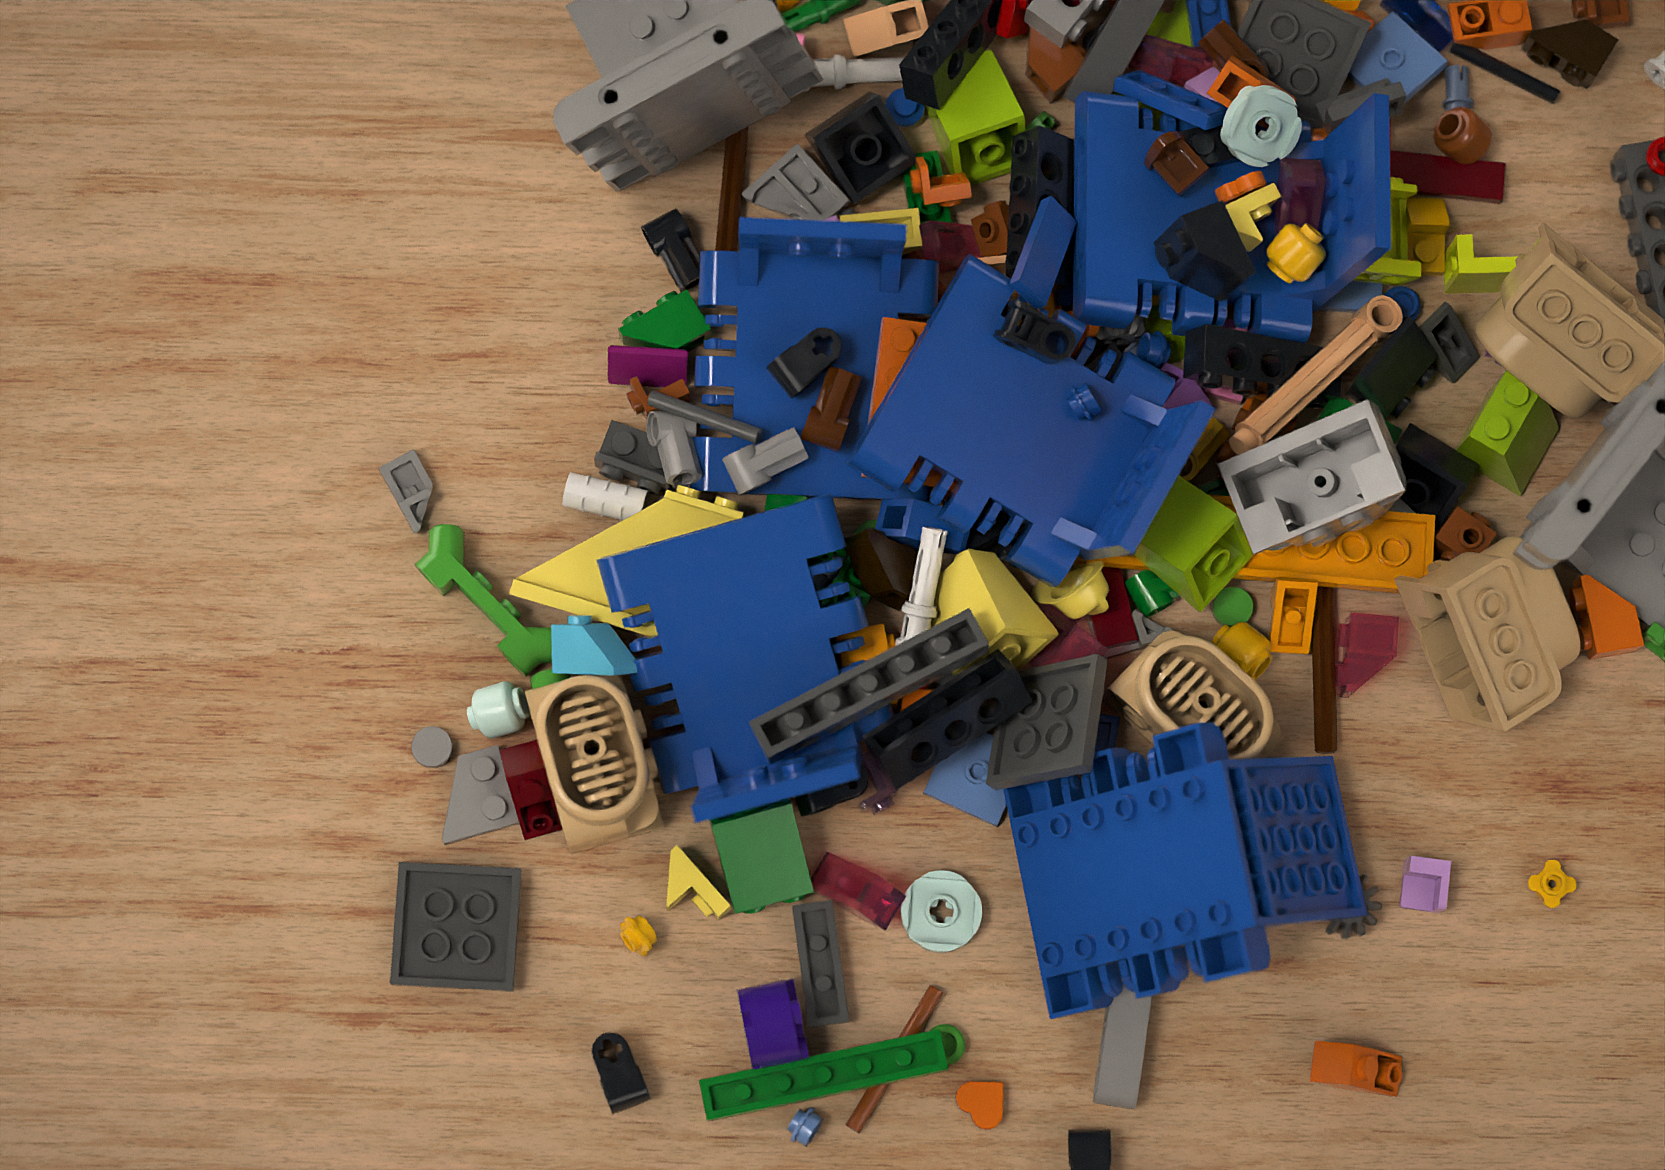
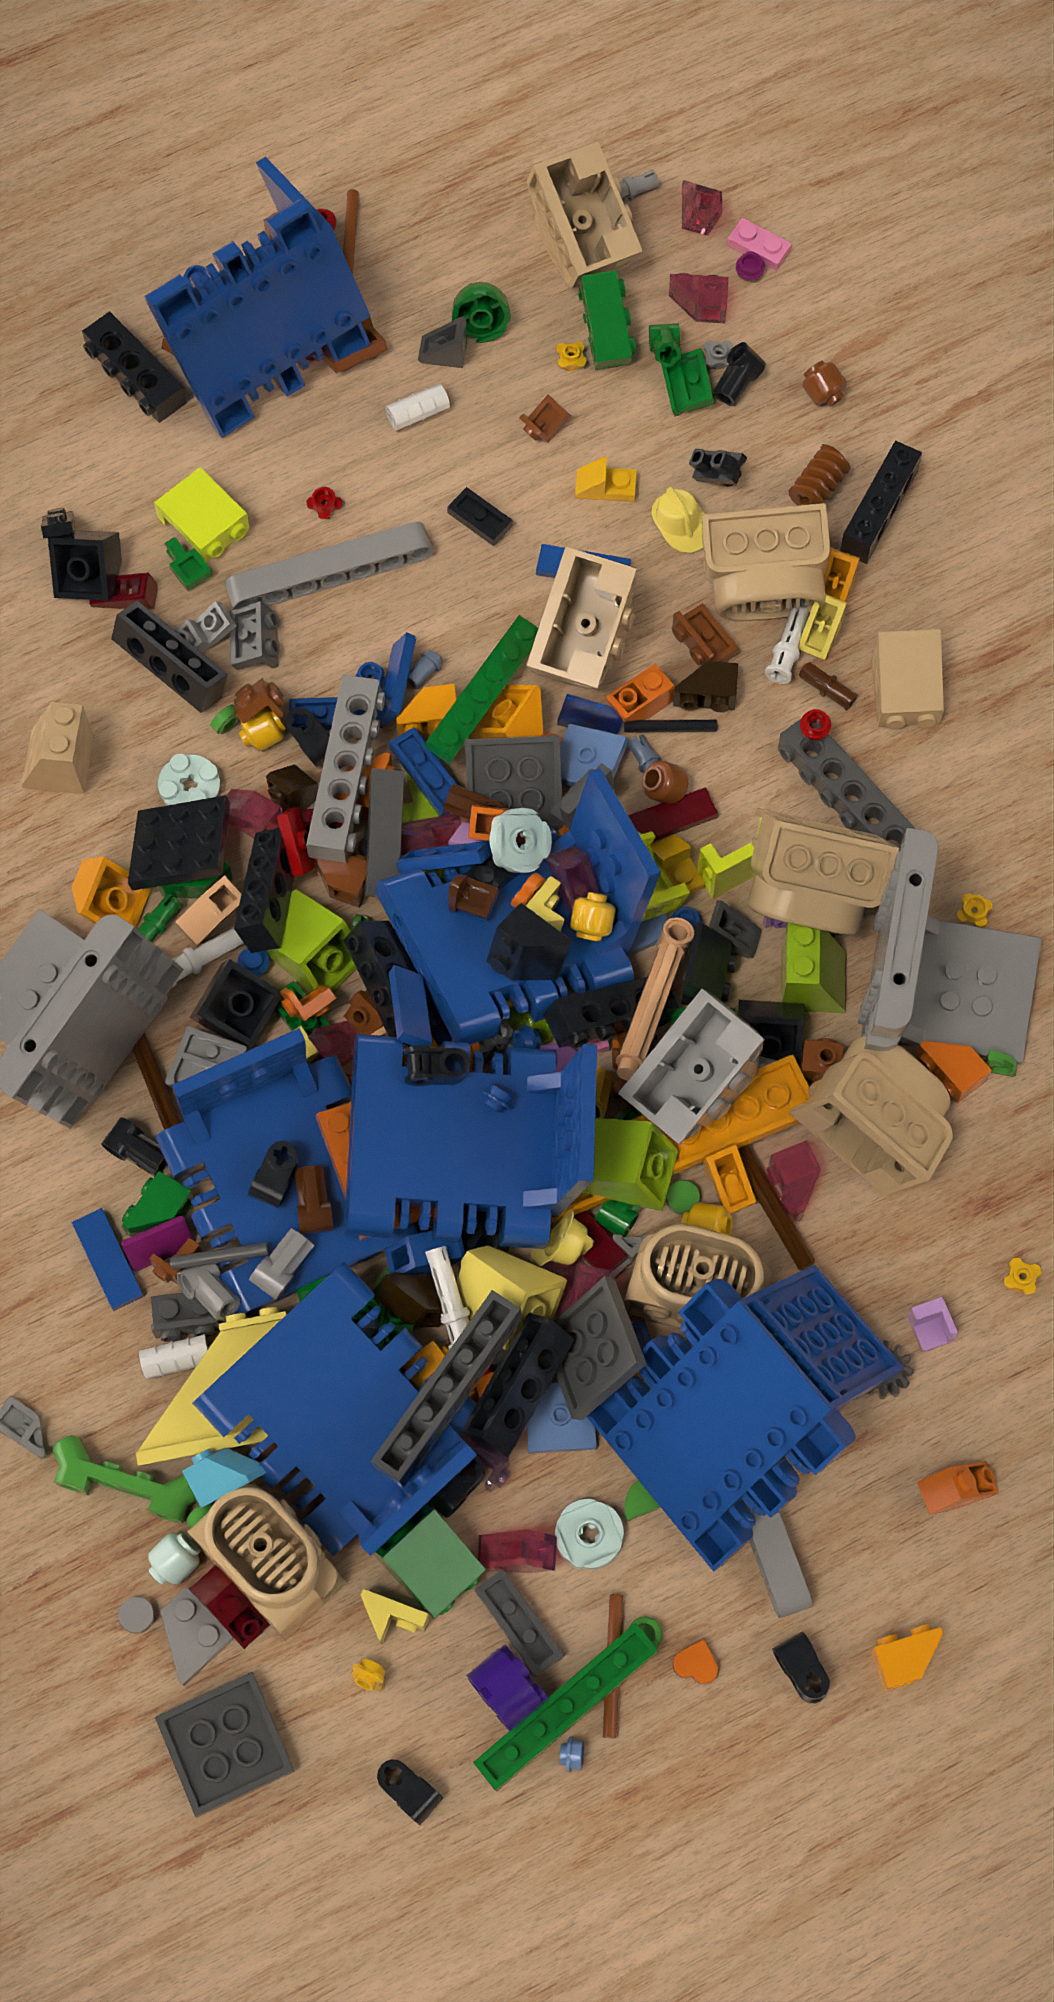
camera: 20 degrees left, 10 degrees down
(586, 355) = (107, 1259): none -> blue tile
(1010, 905) = (639, 1502): none -> bright green tile

